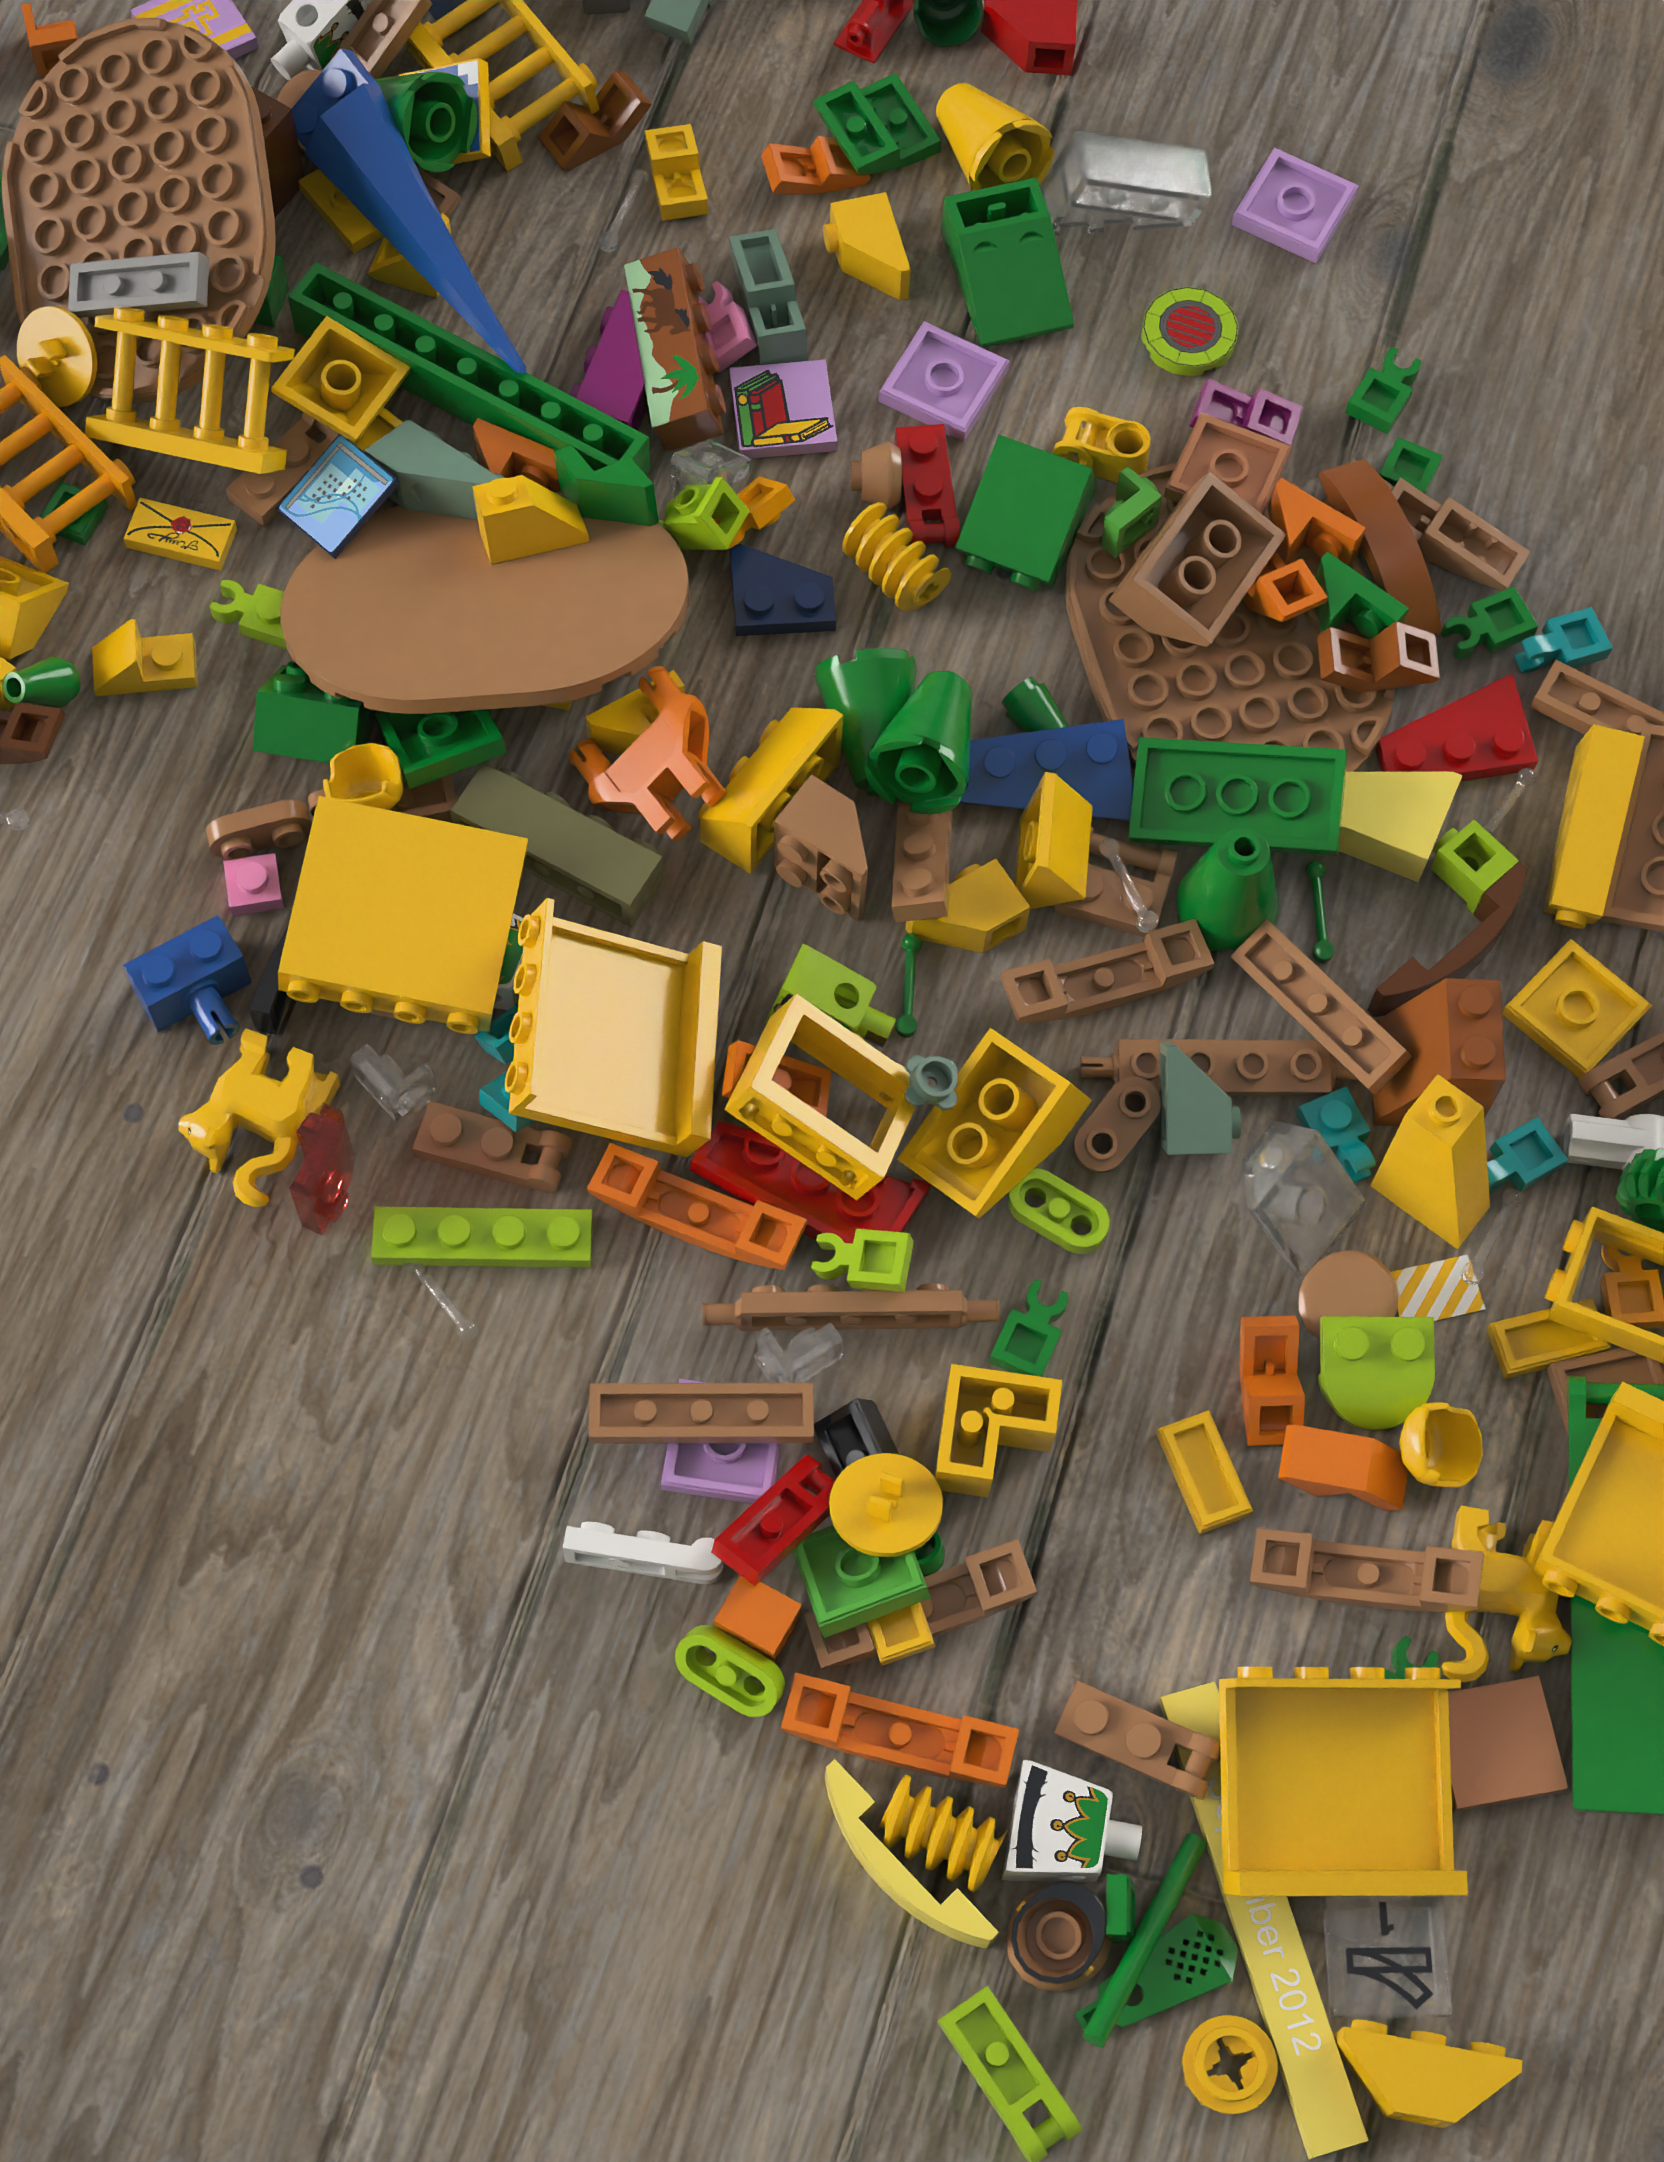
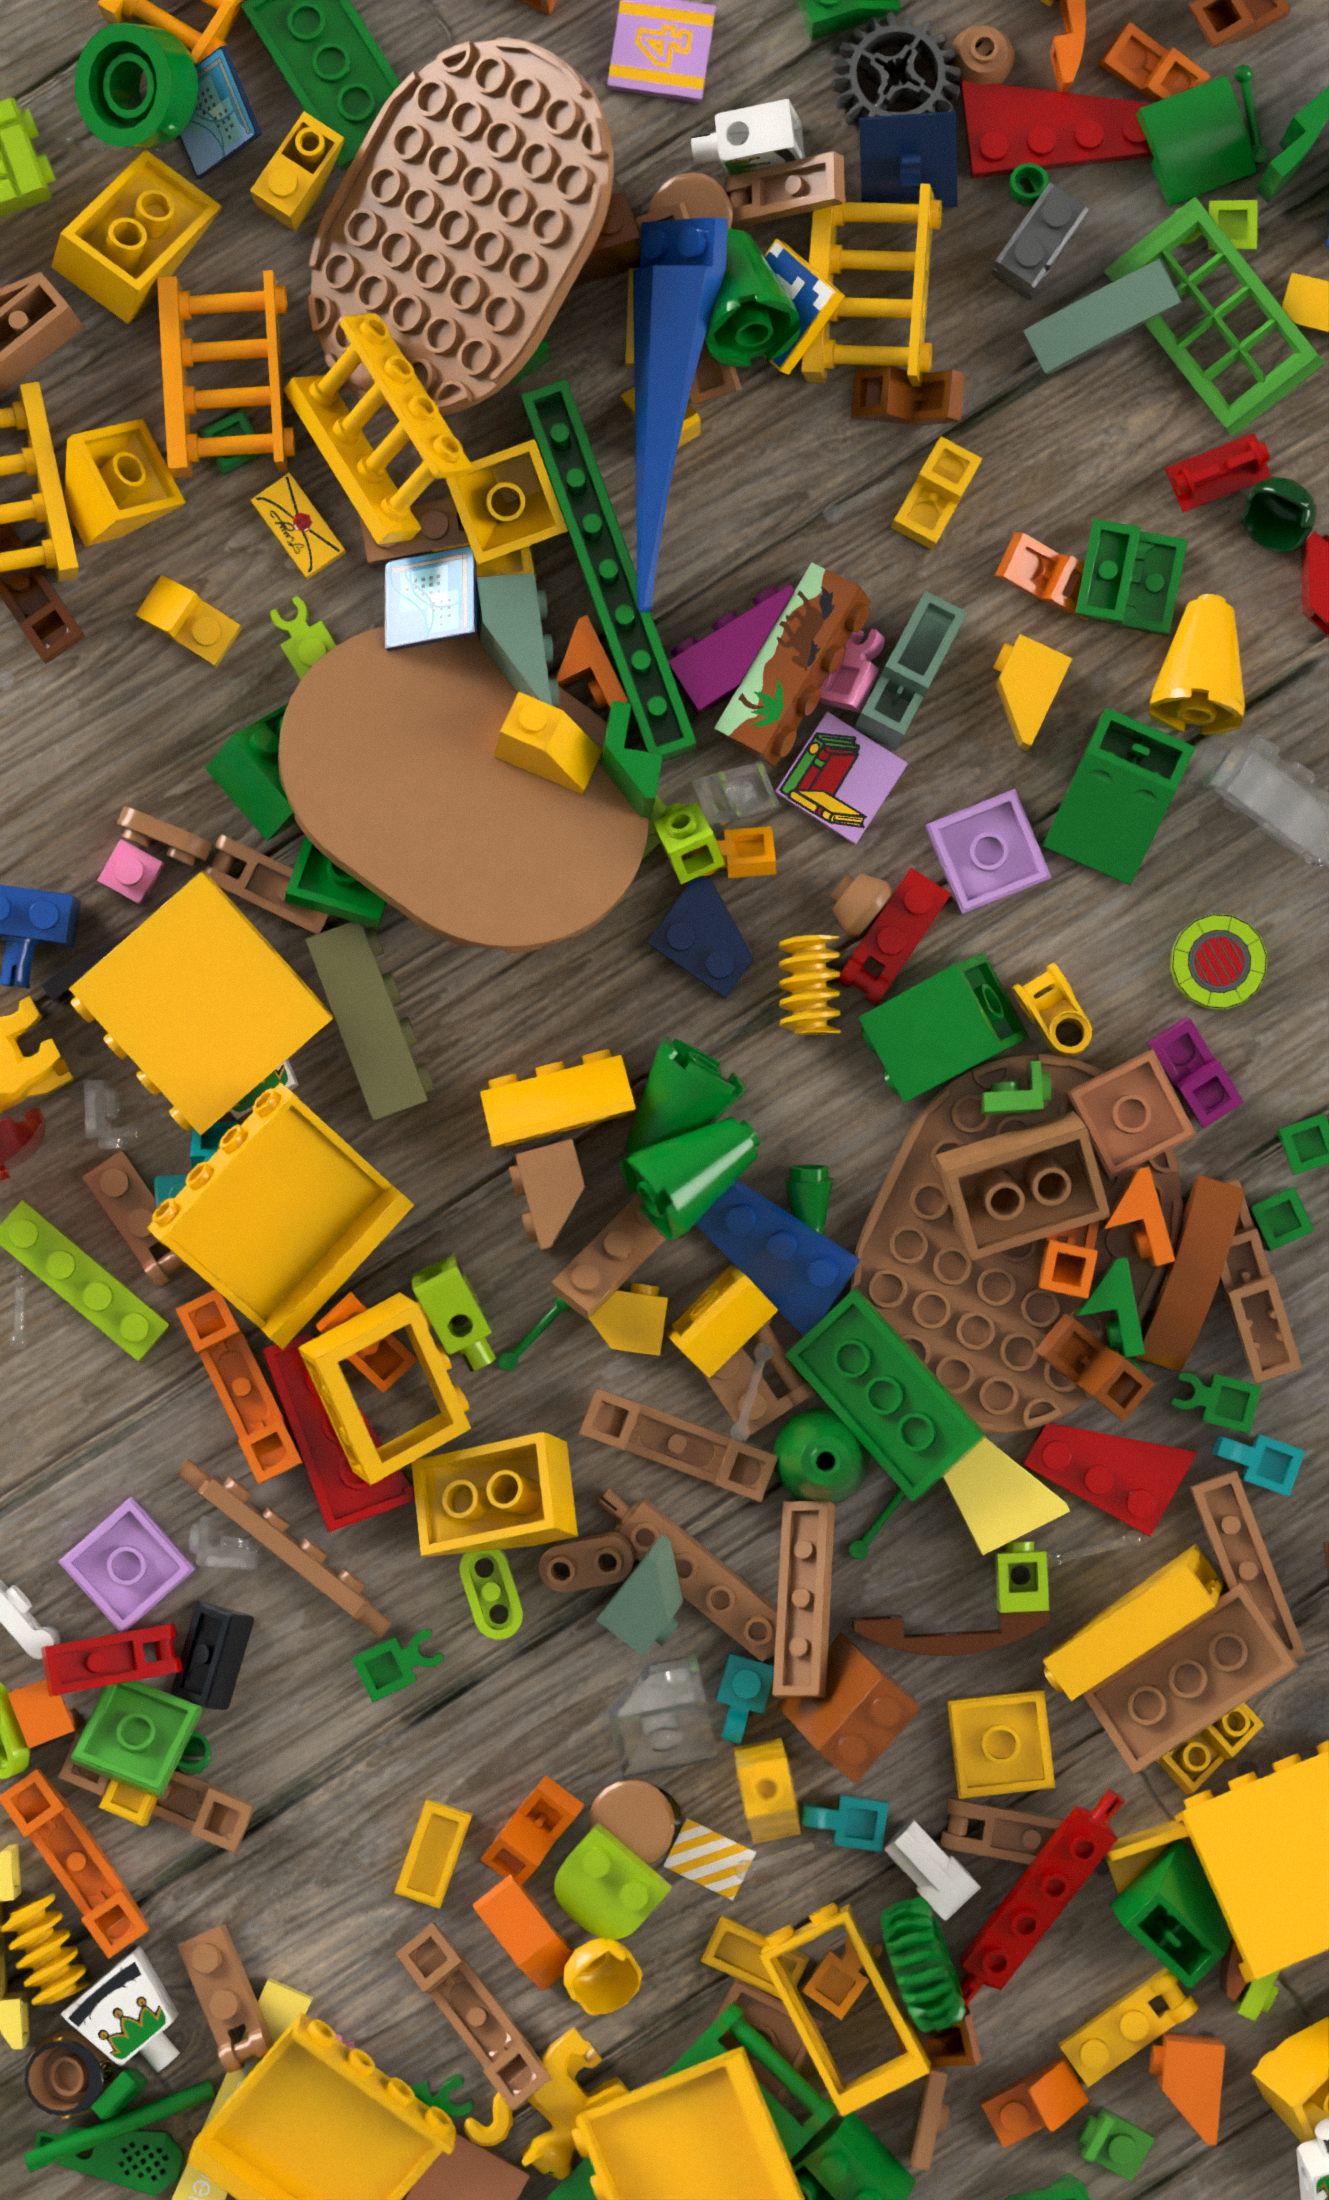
camera: 45 degrees right, 20 degrees up
(45, 683) = (97, 588): green cone -> none
(59, 354) = (314, 299): yellow piece -> none
(139, 283) = (404, 306): light grey plate -> none
(366, 776) = (256, 870): yellow hair -> none
(624, 720) = (496, 967): yellow slope -> none
(658, 763) = (483, 1030): orange connector -> none
(701, 1413) = (118, 1540): medium nougat plate -> none
(873, 1261) = (320, 1531): lime plate -> none
(886, 1505) = (186, 1709): yellow piece -> none
(939, 1069) = (472, 1449): sand green plate -> none
(987, 1411) = (310, 1697): yellow brick -> none

